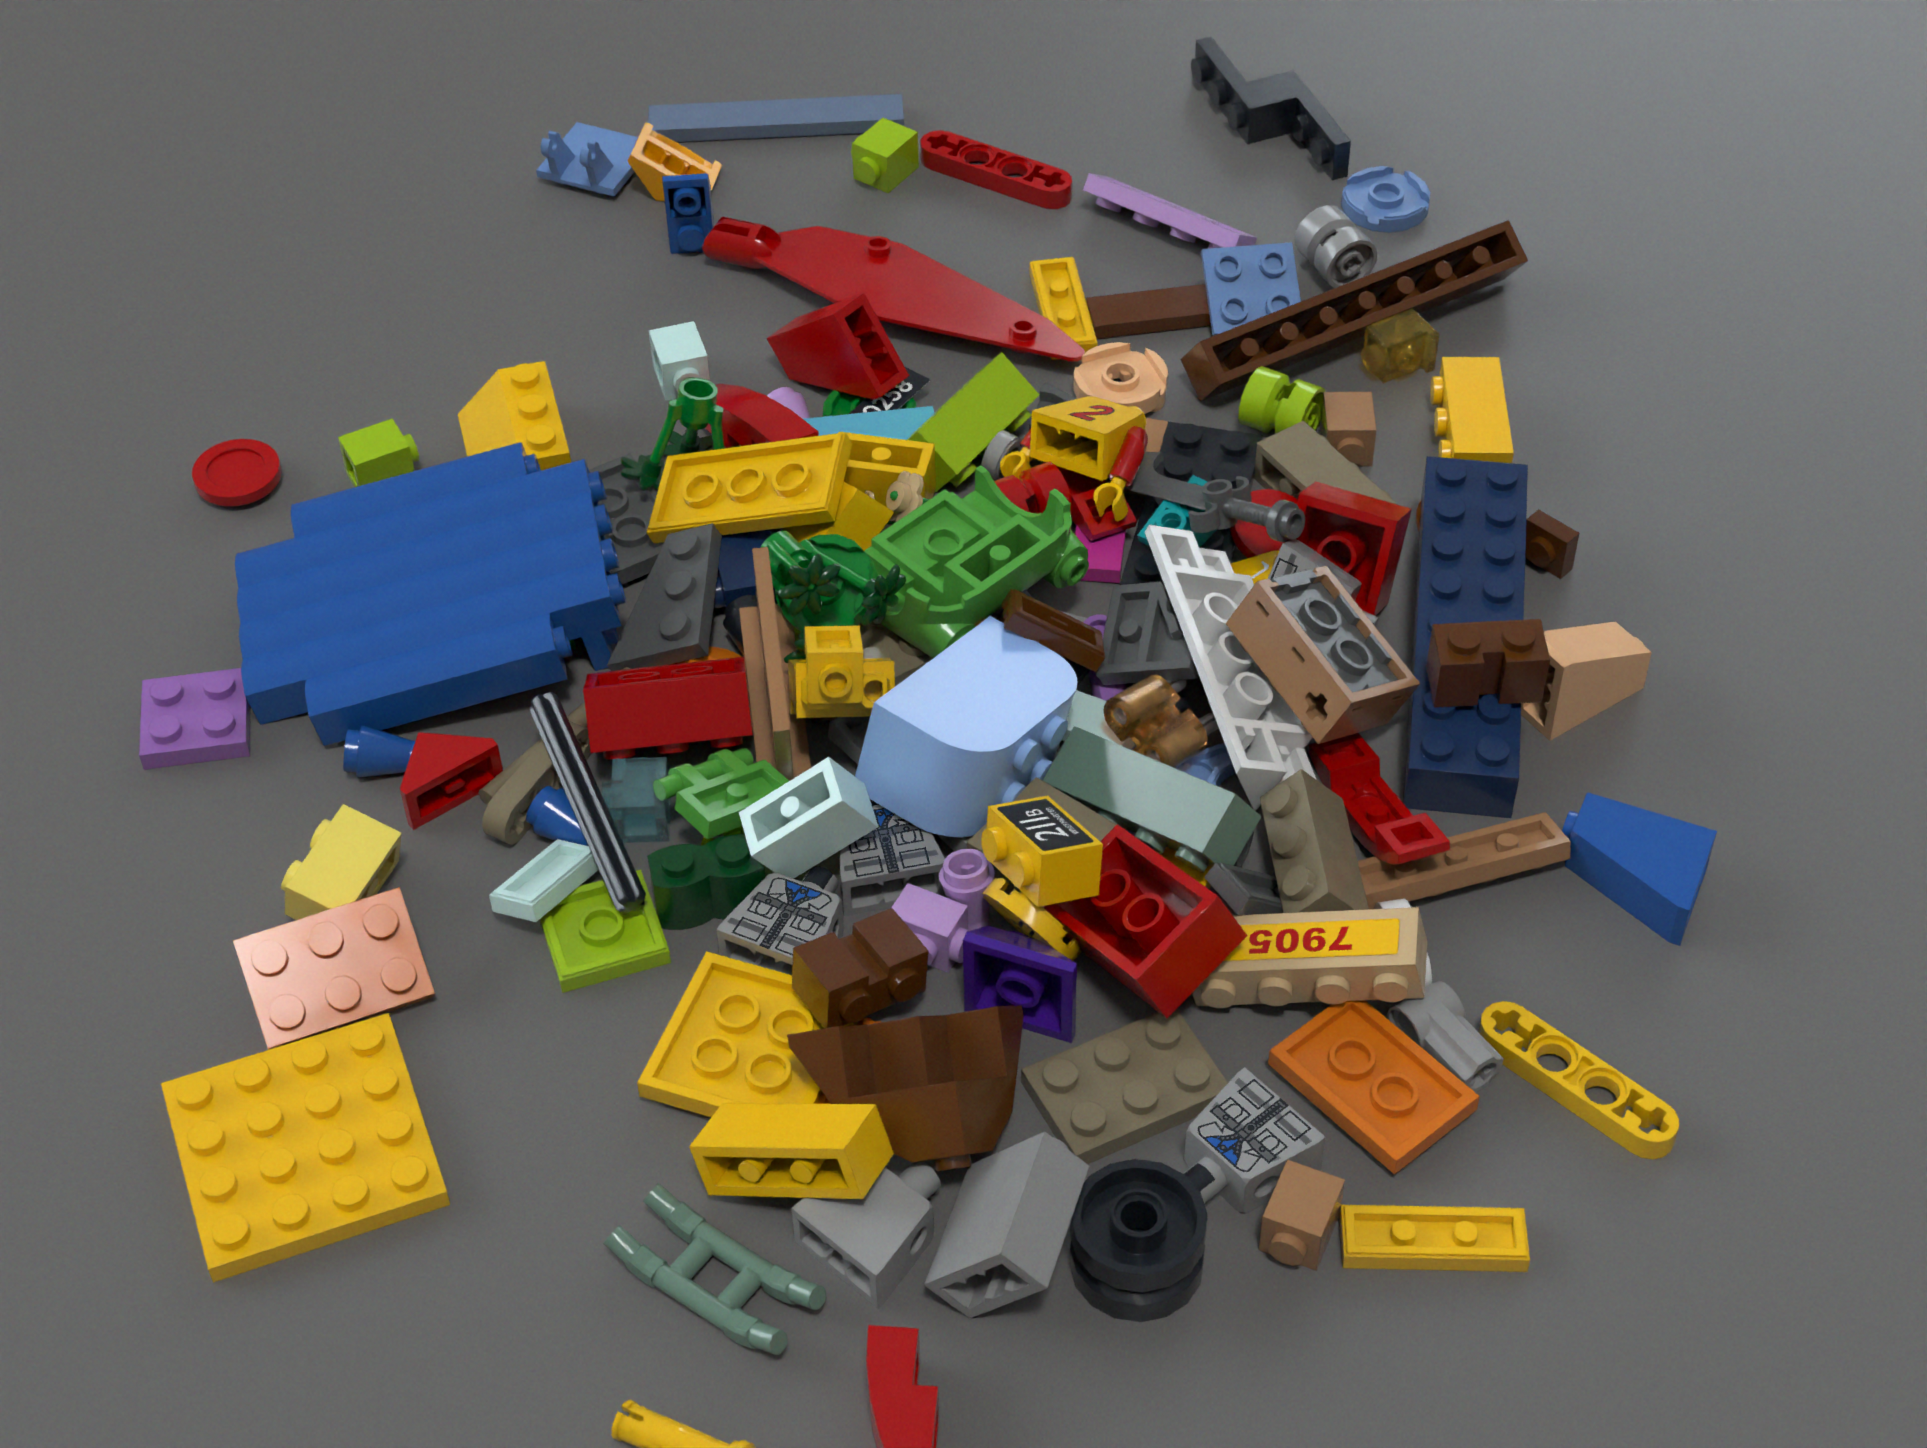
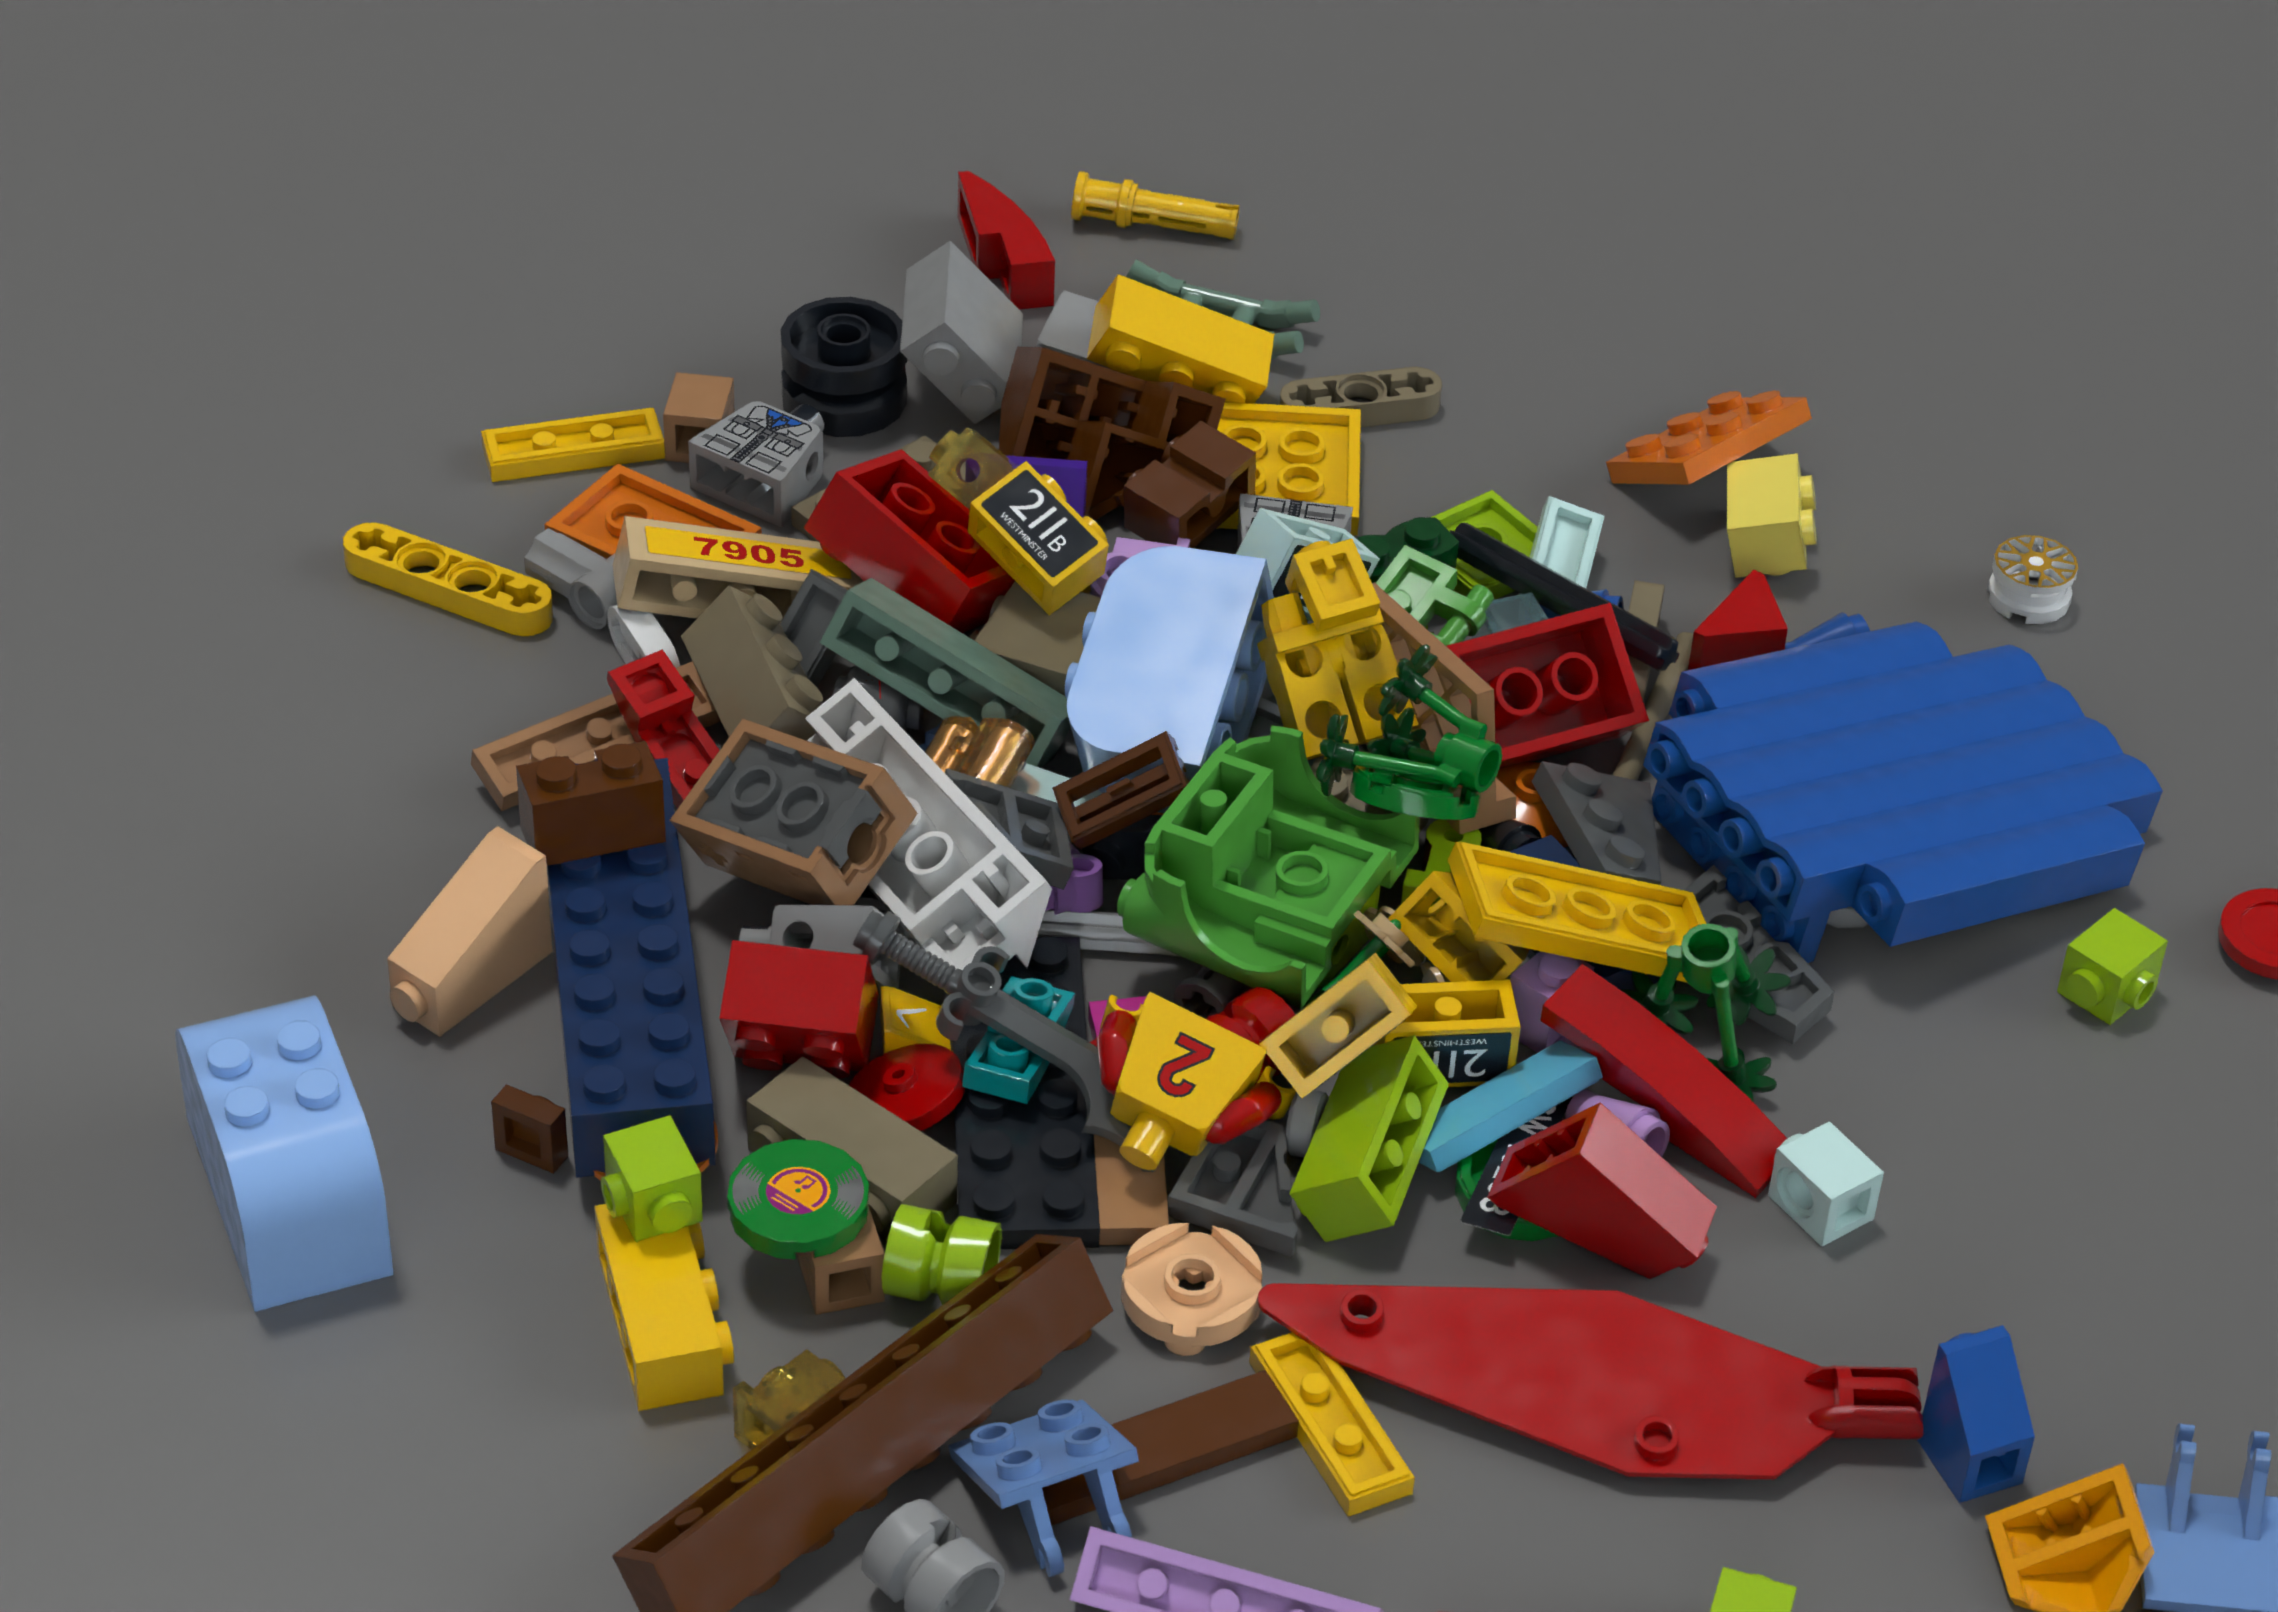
camera: 160 degrees right, 5 degrees down
(159, 790) = (2032, 581): none -> white wheel
(194, 719) = (2077, 656): medium lavender plate -> none
(302, 1146) = (1638, 347): yellow plate -> none
(513, 409) = (1948, 1033): yellow slope -> none
(604, 1110) = (1395, 394): none -> dark tan beam
(972, 426) = (1339, 1025): none -> yellow brick
(1072, 930) = (954, 451): none -> clear yellow brick
(1375, 418) = (798, 1198): none -> green tile
(1476, 425) = (651, 1179): none -> lime brick
(1640, 861) = (389, 767): blue slope -> none
(1735, 529) = (285, 1151): none -> light blue brick

